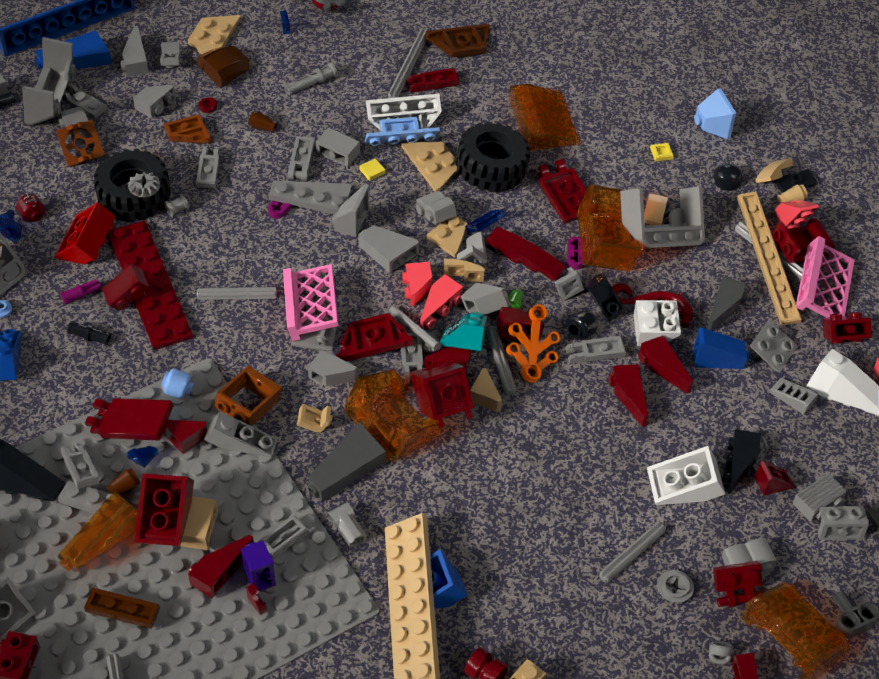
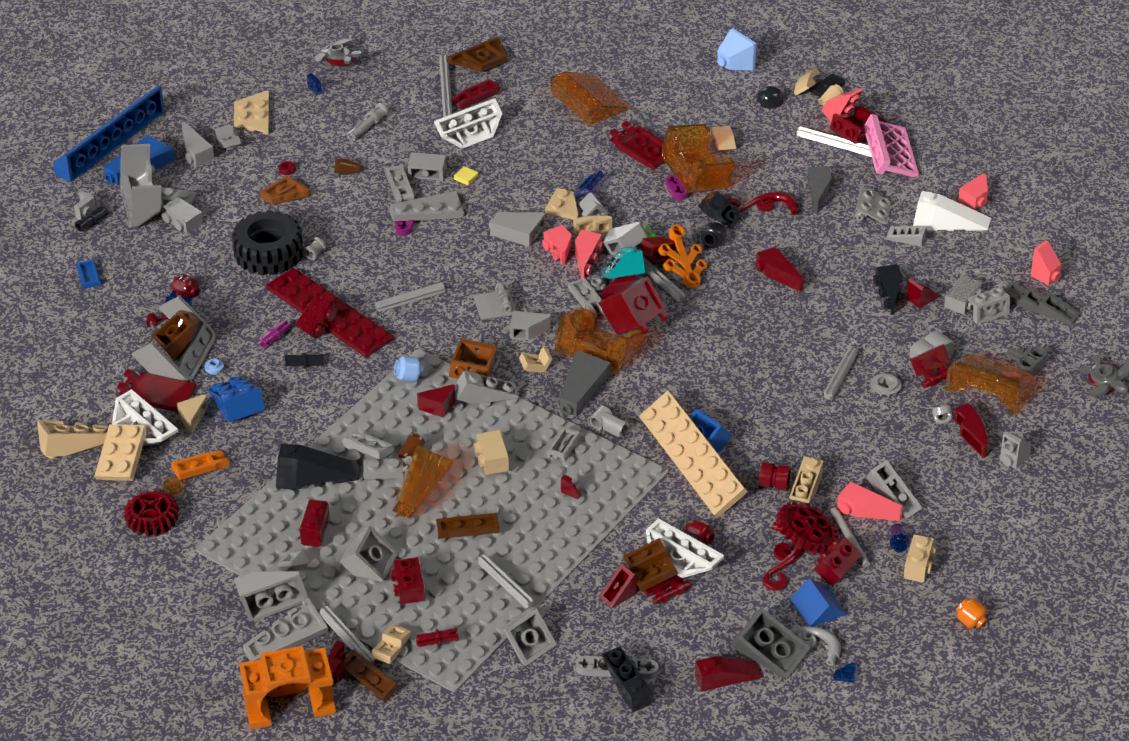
camera: 20 degrees left, 10 degrees down
(86, 235) = (249, 292): red slope -> none
(88, 126) = (192, 241): dark orange piece -> none
(130, 418) = (388, 401): dark red tile -> none
(143, 455) = (411, 426): clear blue tile -> none
(150, 99) = (235, 176): light grey slope -> none
(150, 188) = (281, 237): light grey gear -> none
(163, 509) = (464, 444): dark red slope -> none
(208, 168) = (322, 214): light grey hinge -> none
(217, 567) = (526, 476): dark red slope -> none
(223, 64) = (281, 132): reddish brown slope -> none
(258, 565) = (561, 460): dark purple brick -> none
(294, 288) = (467, 287): bright pink fence -> none
(352, 213) = (472, 209): light grey slope -> none
(373, 337) = (549, 291): dark red wing -> none
(401, 130) = (476, 137): light blue bracket -> none
(415, 328) = (578, 275): light grey bar -> none
(432, 161) = (514, 155): tan wing -> none
(436, 207) = (541, 185): light grey brick -> none
(485, 393) = (672, 304): tan slope -> none
(489, 172) = (567, 134): black tyre -> none
(529, 254) = (631, 197): dark red slope -> none
(569, 284) = (686, 209): light grey bracket -> none
(596, 349) = (734, 249): light grey hinge -> none
(656, 319) = (772, 215): white slope -> none
(661, 152) = (704, 94): light yellow tile -> none
(663, 361) = (794, 241): dark red slope -> none
(684, 225) = (754, 141): light grey windscreen -> none
(686, 478) = (856, 312): white slope -> none
(719, 351) = (832, 220): blue slope -> none
(769, 259) = (836, 145): tan tile -> none
(851, 327) = (931, 173): dark red brick -> none

